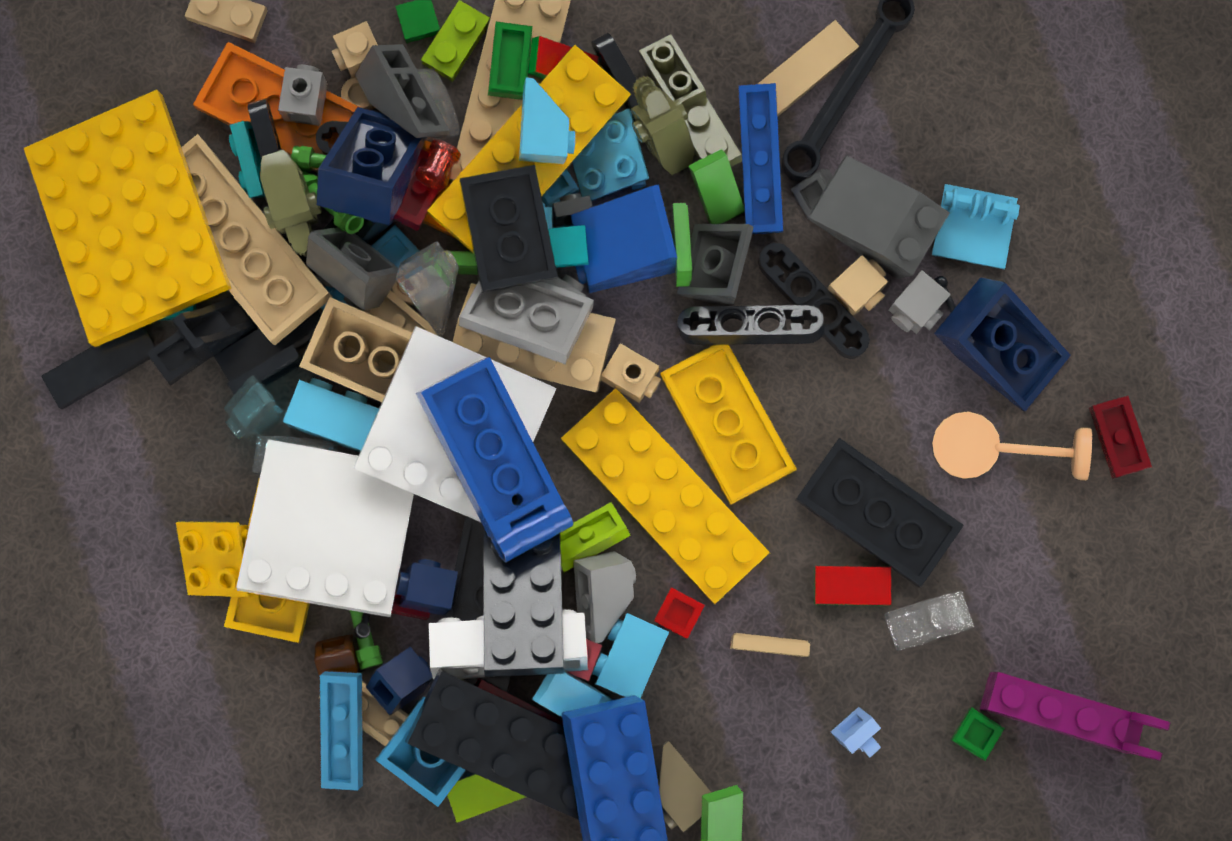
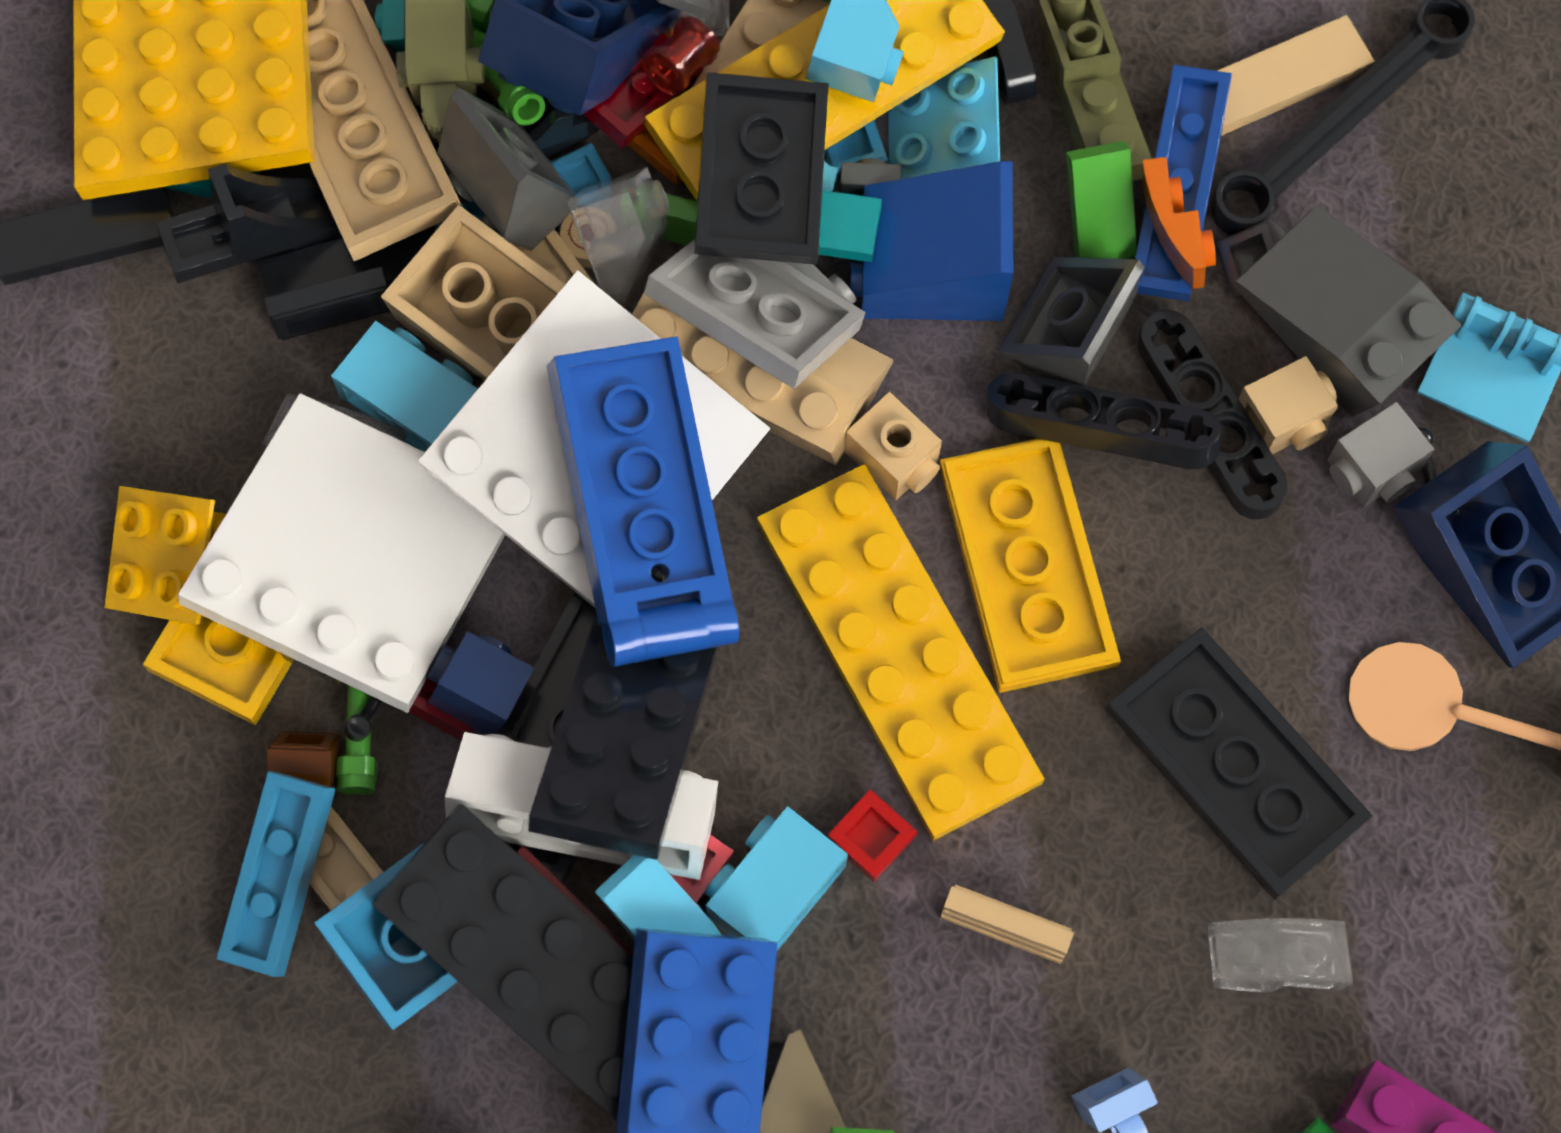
camera: 15 degrees right, 10 degrees down
(253, 410) = (291, 348): clear light blue slope -> none
(400, 680) = (390, 817): dark blue brick -> none
(478, 795) = (467, 1042): lime tile -> none
(592, 535) = (763, 677): lime plate -> none
(603, 591) = (759, 765): light grey slope -> none
(662, 126) = (1040, 90): olive hinge -> none
(682, 244) = (1025, 275): bright green tile -> none
(771, 200) = (1177, 230): none -> orange slope
(852, 585) = (1166, 868): red tile -> none

